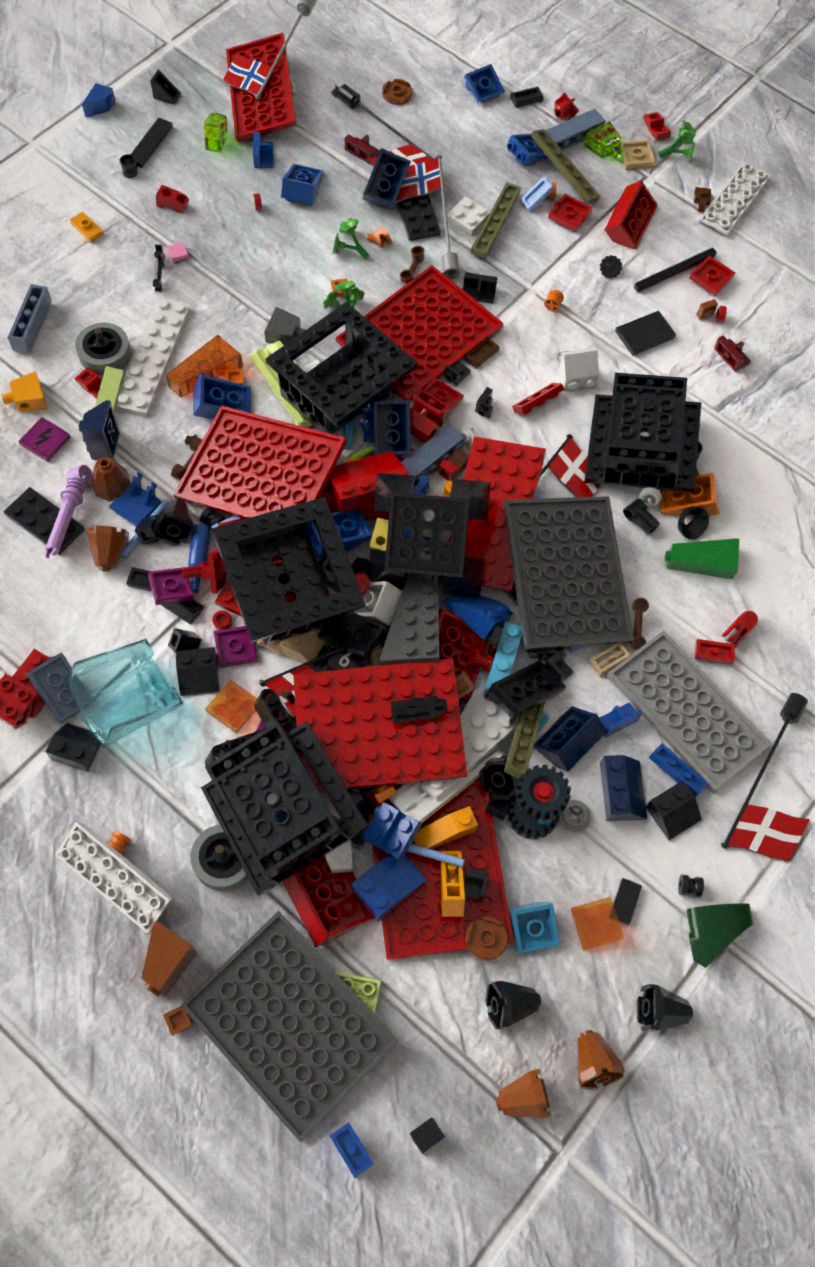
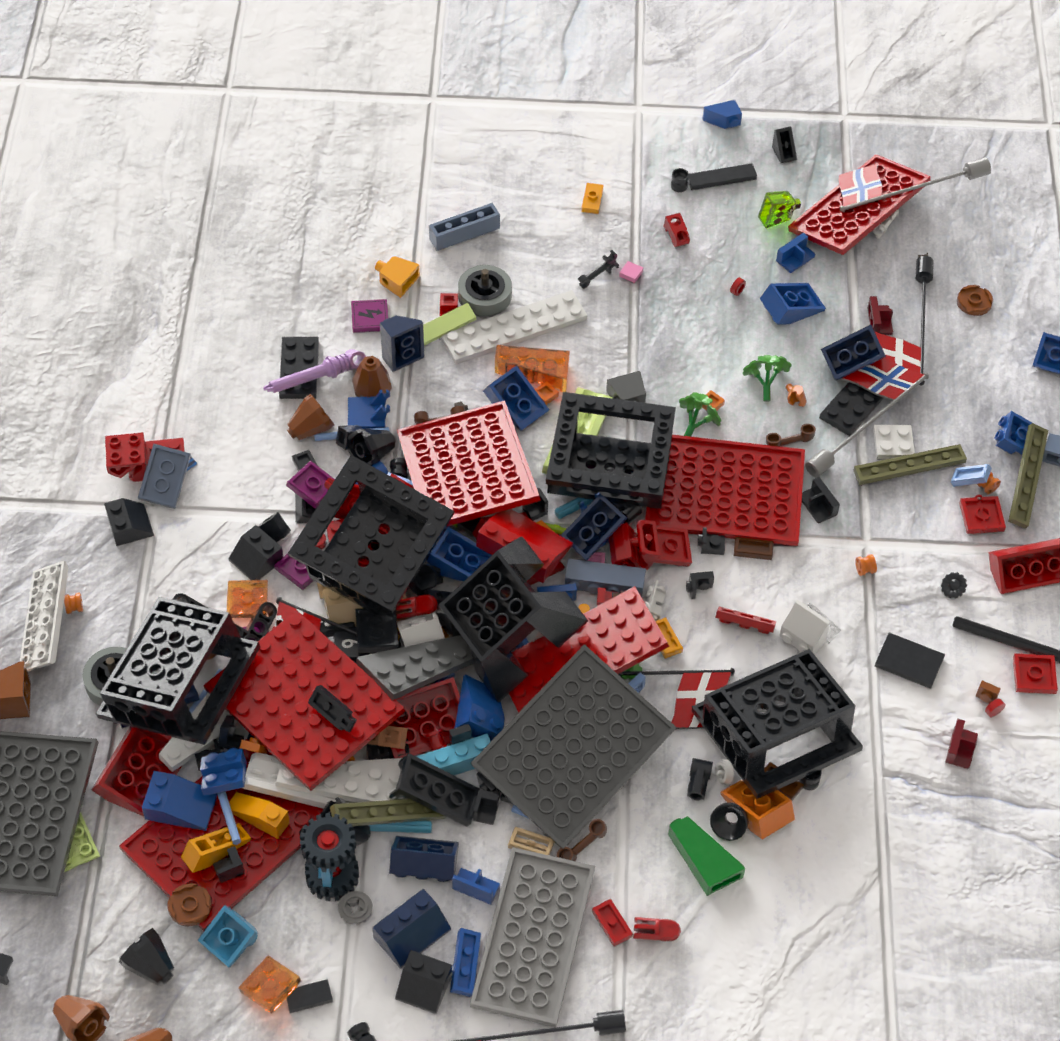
camera: 55 degrees right, 10 degrees down
(121, 691) = (195, 514): clear light blue windscreen -> none

